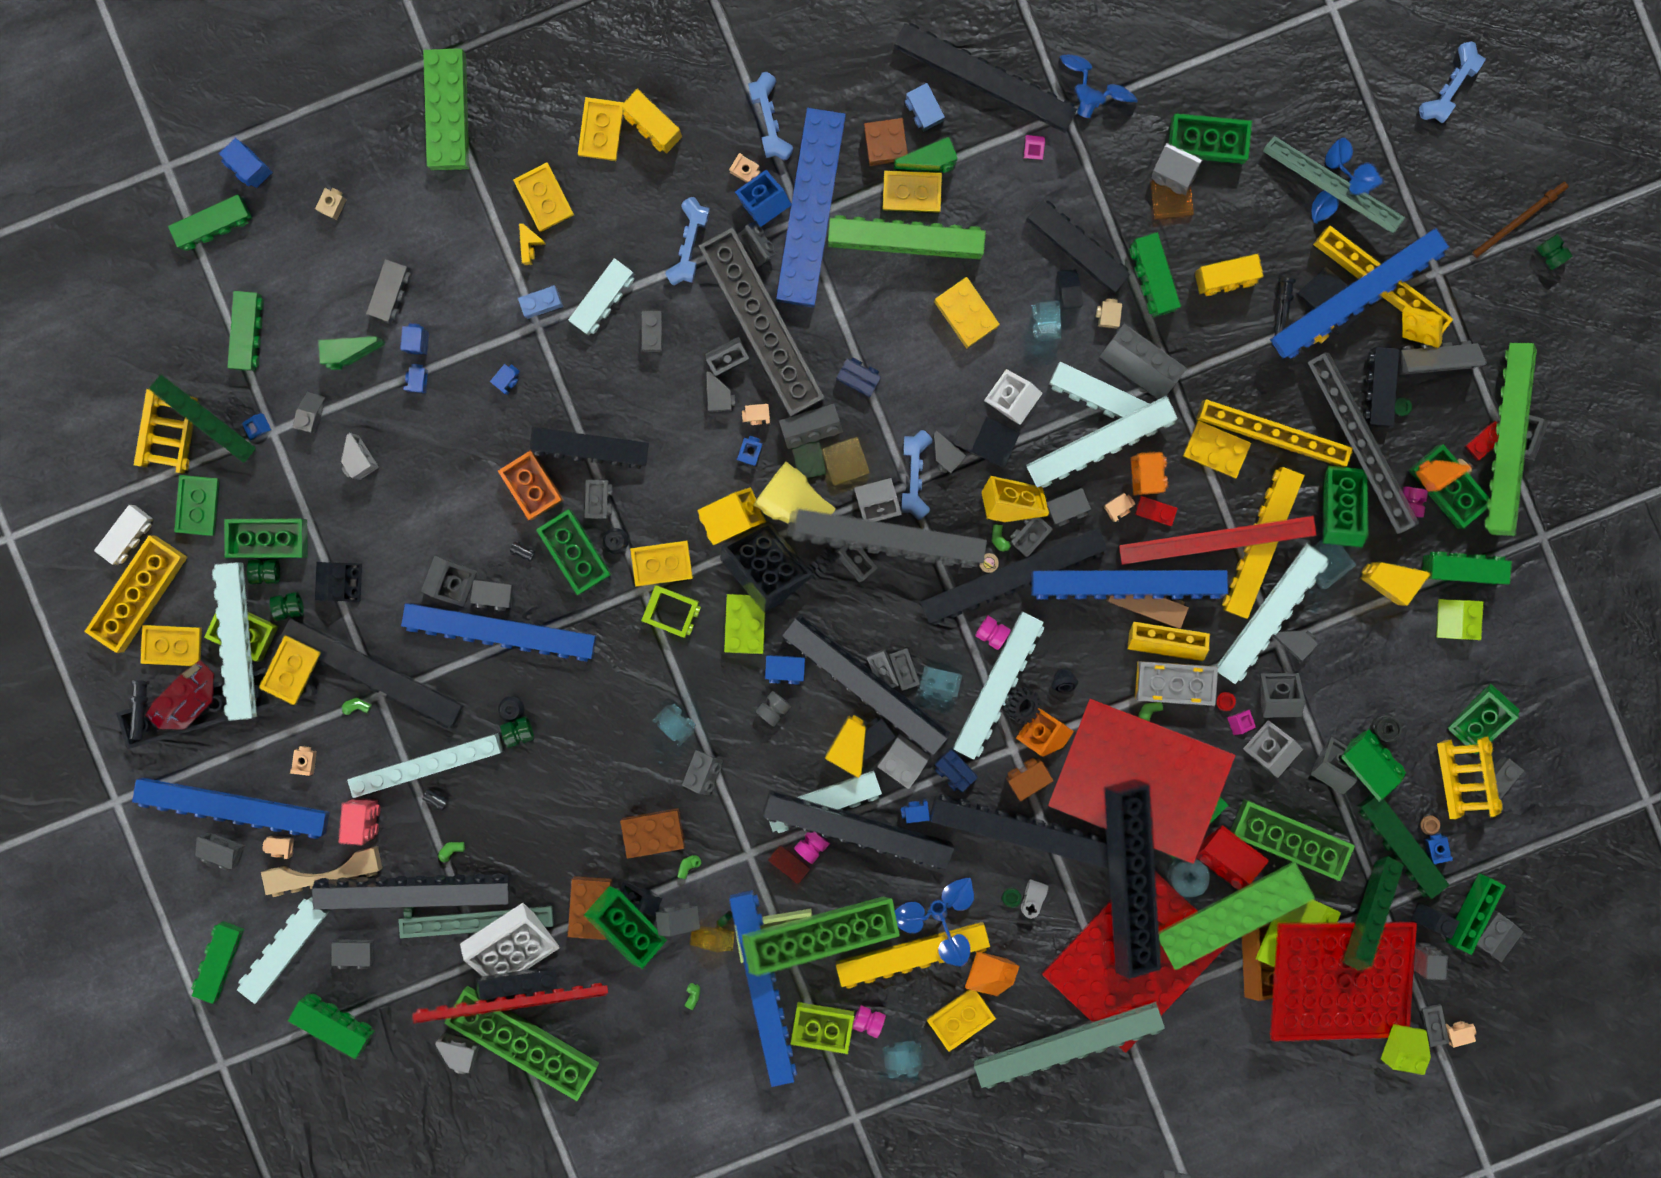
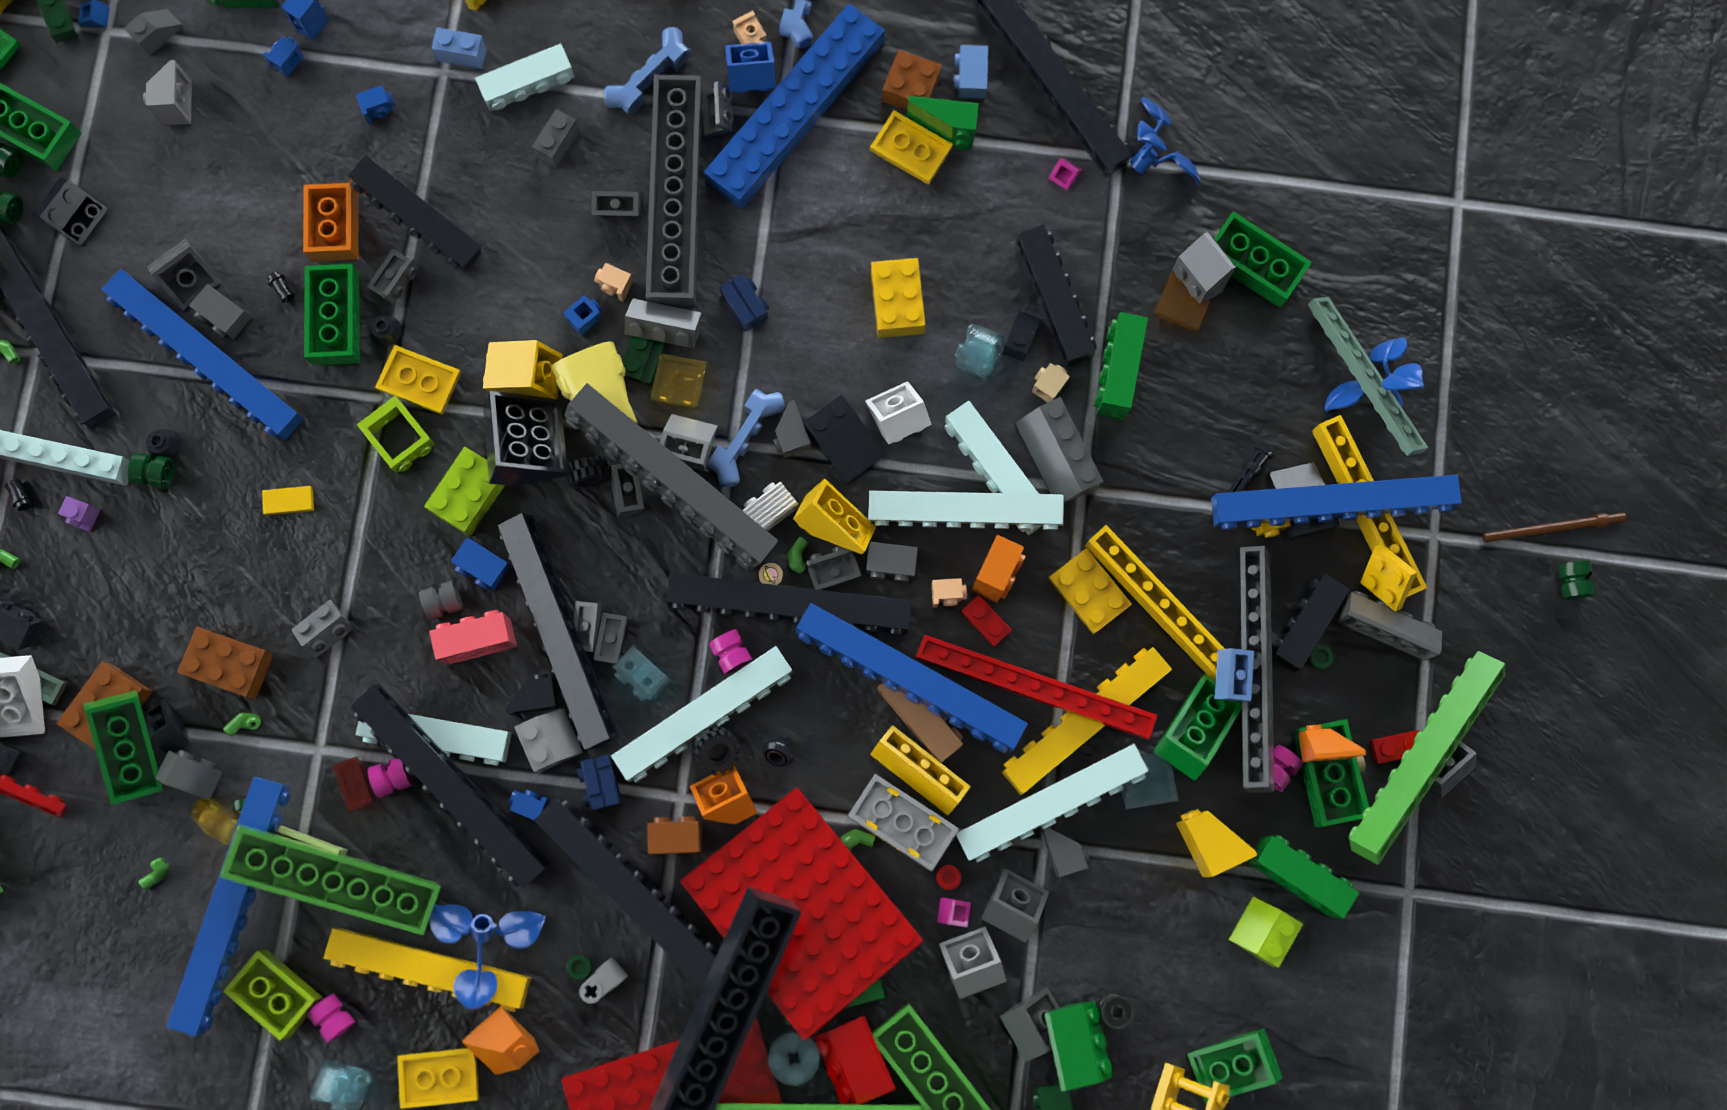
camera: 25 degrees right, 10 degrees down
(486, 789) = (79, 513): none -> medium lavender brick
(623, 698) = (288, 500): none -> yellow tile
(674, 724) = (322, 556): clear light blue brick -> none
(718, 395) = (584, 240): dark grey slope -> none
(812, 722) = (472, 637): none -> coral brick
(848, 746) = (495, 686): yellow slope -> none
(906, 238) = (876, 186): bright green brick -> none
(962, 516) = (771, 506): none -> white brick
(1229, 275) = (1202, 408): yellow brick -> none
(1352, 459) = (1234, 675): none -> medium blue brick
(1470, 65) = (1526, 363): medium blue plate -> none

